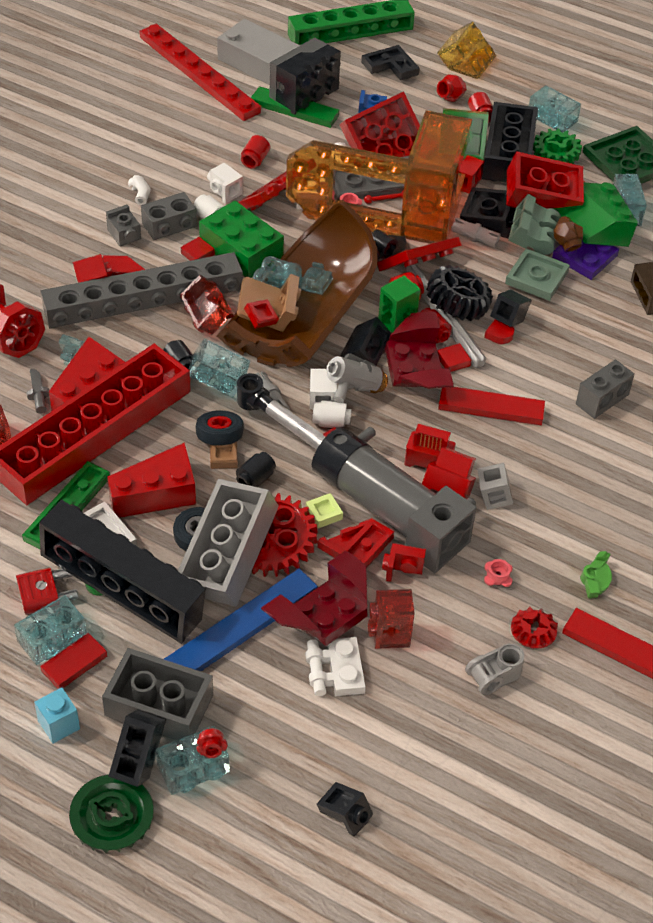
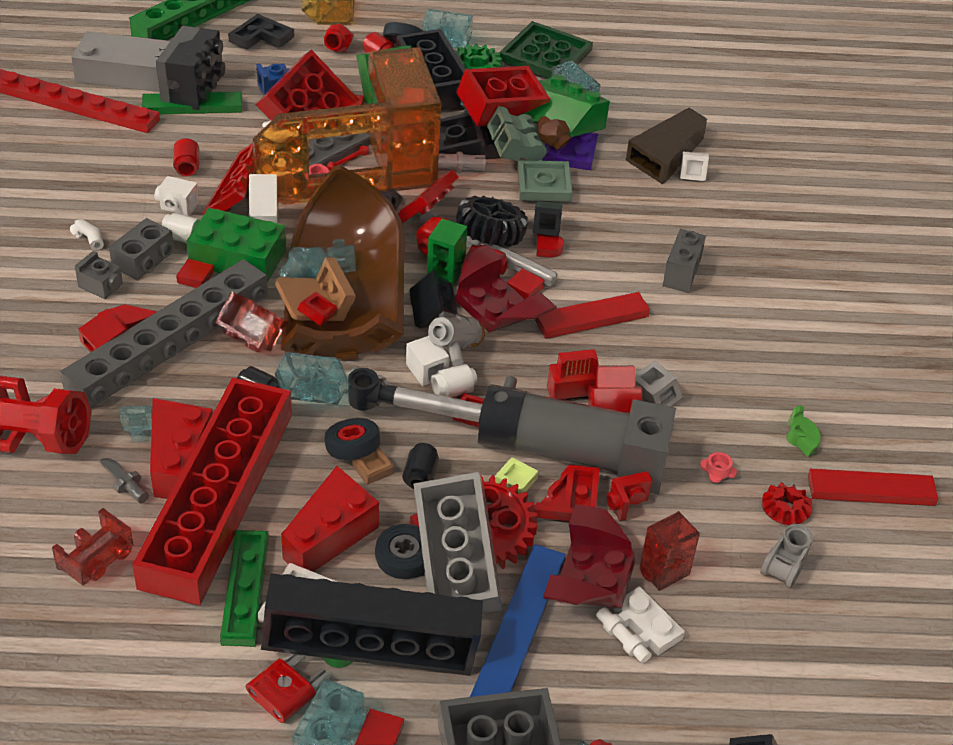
camera: 30 degrees left, 5 degrees down
(283, 210) = (263, 197): none -> white slope
(502, 96) = (394, 29): none -> black bush

